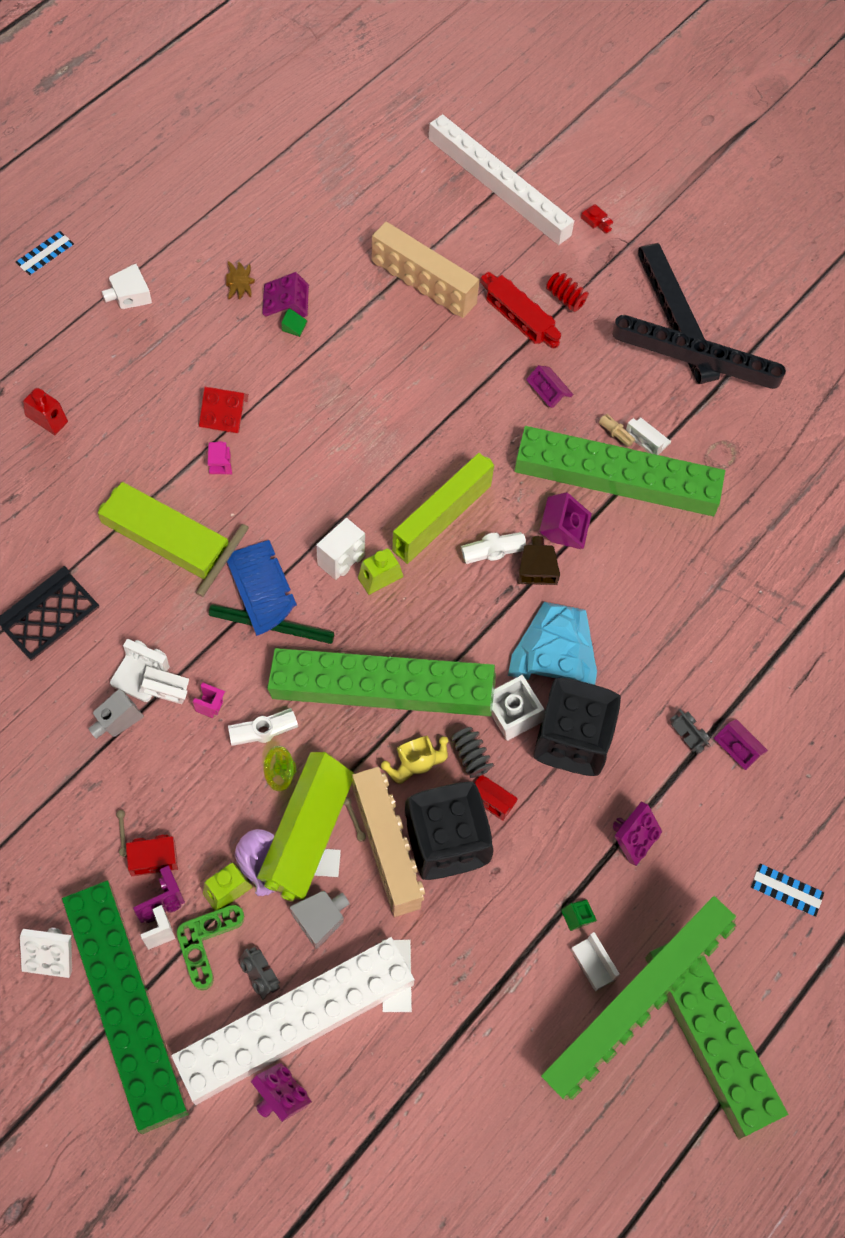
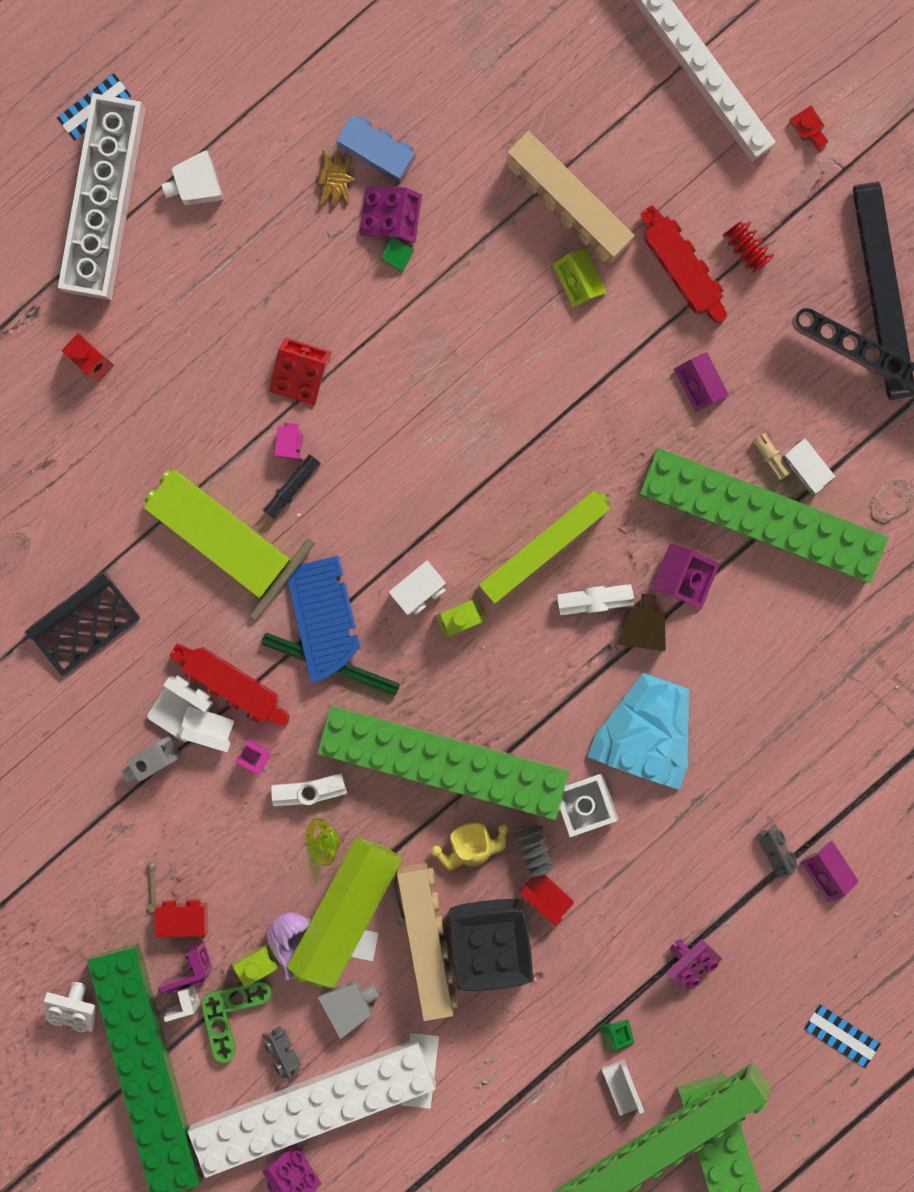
camera: 10 degrees right, 25 degrees up
(52, 304) = (101, 197): none -> white brick
(185, 647) = (231, 683): none -> red hinge
(219, 497) = (290, 488): none -> black pin
(268, 255) = (376, 148): none -> medium blue brick
(439, 325) = (579, 277): none -> lime panel
(577, 727) = (649, 846): black piece -> none

